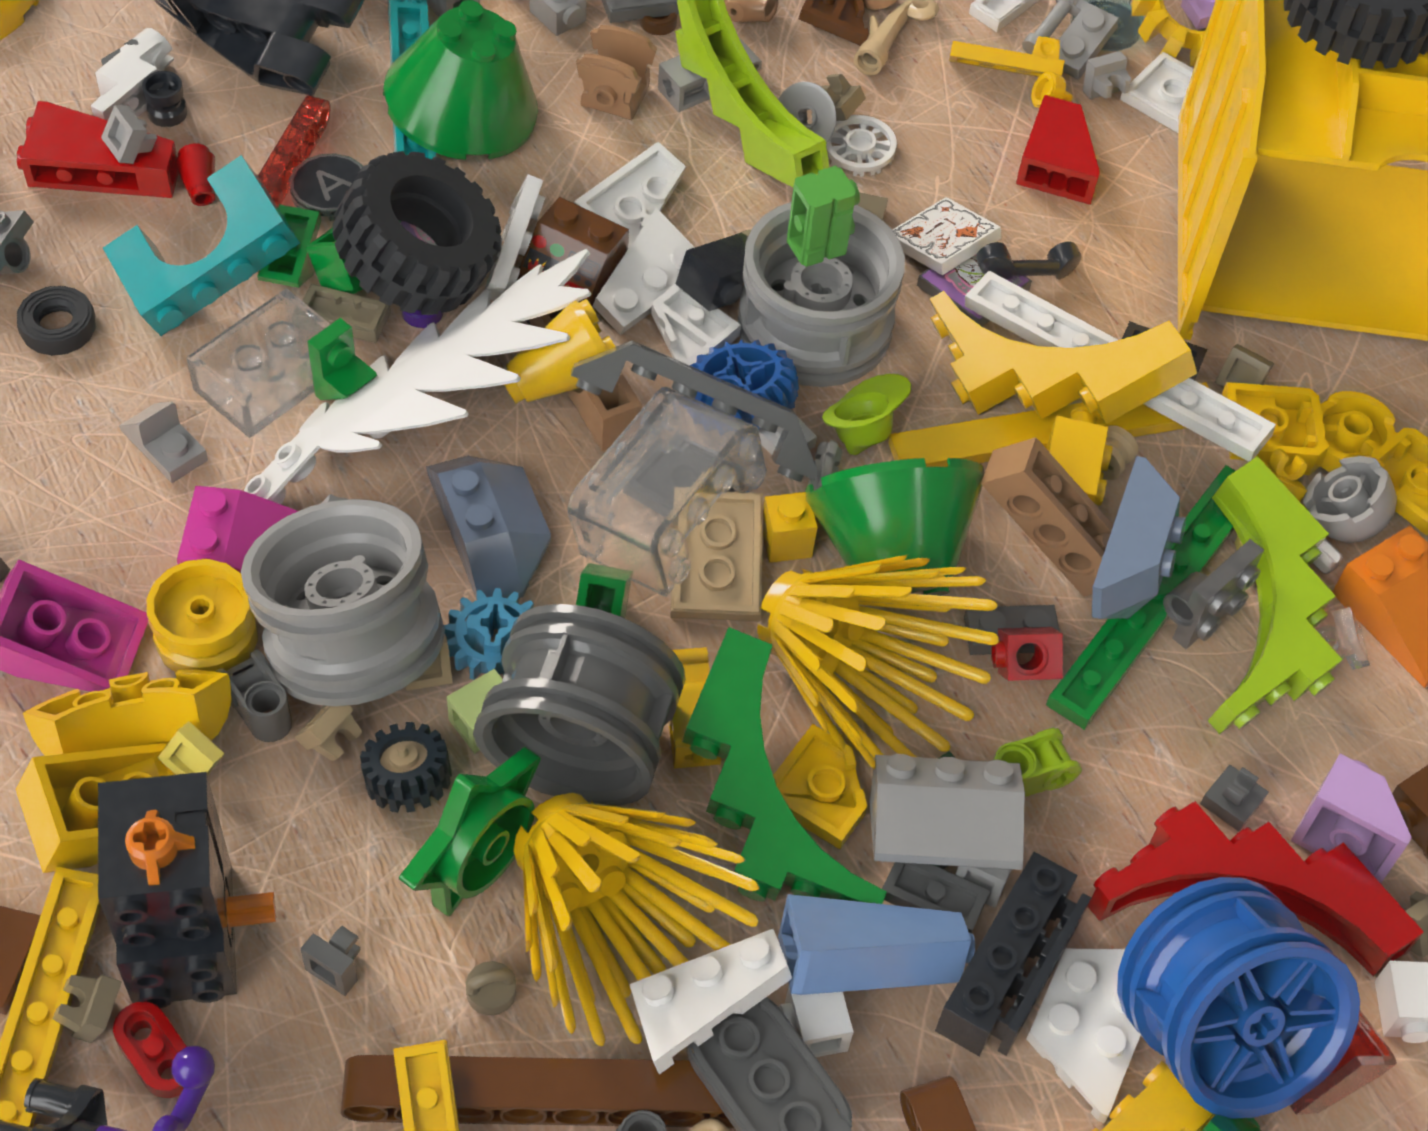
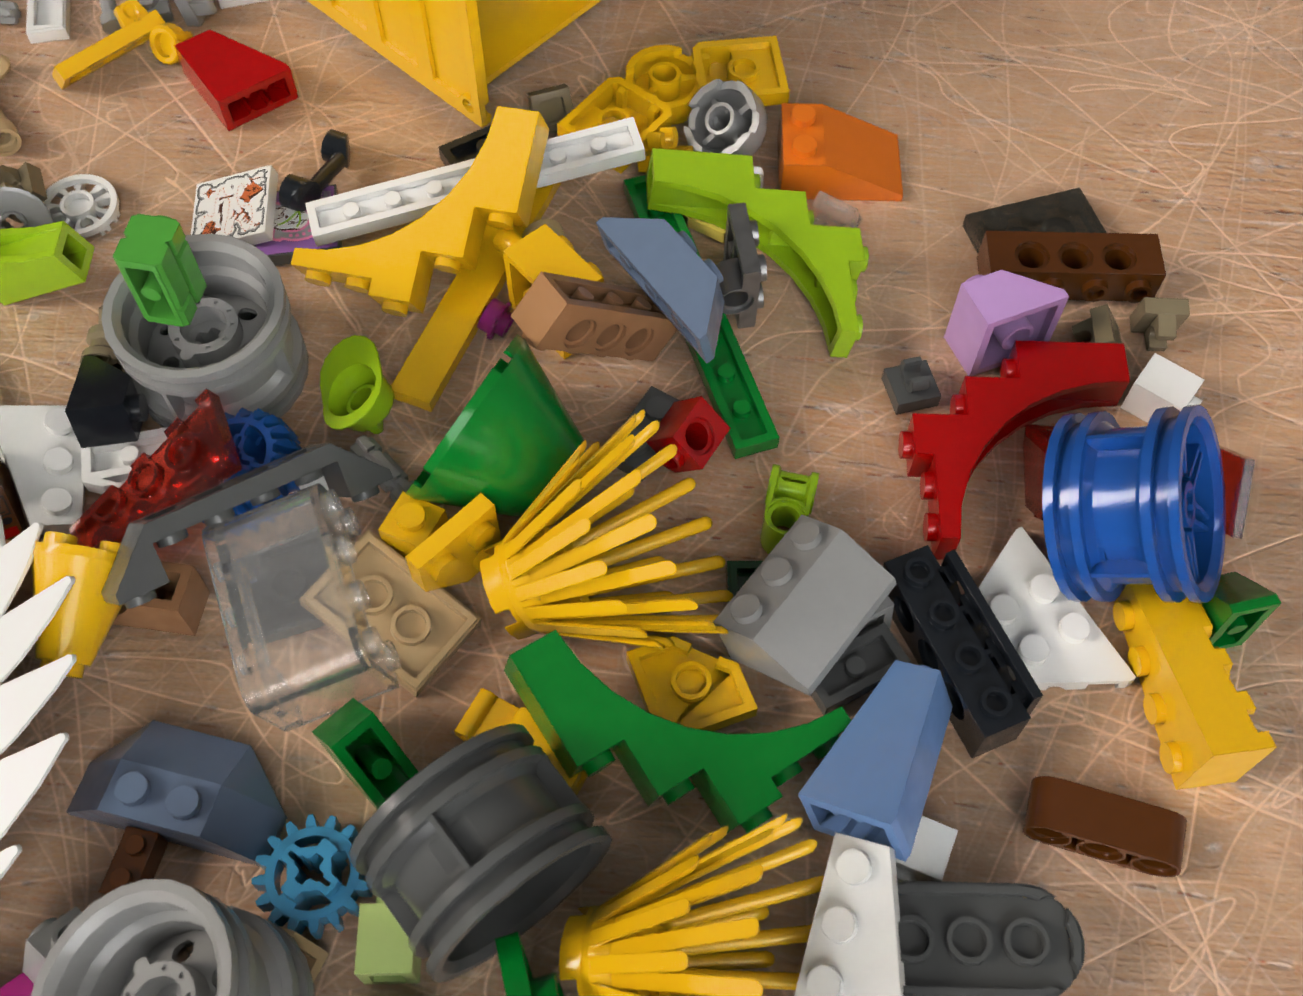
camera: 50 degrees left, 5 degrees up
(433, 525) = (134, 859): none -> reddish brown piece
(713, 348) = (189, 461): none -> clear red wing
(783, 547) = (455, 548): none -> yellow plate

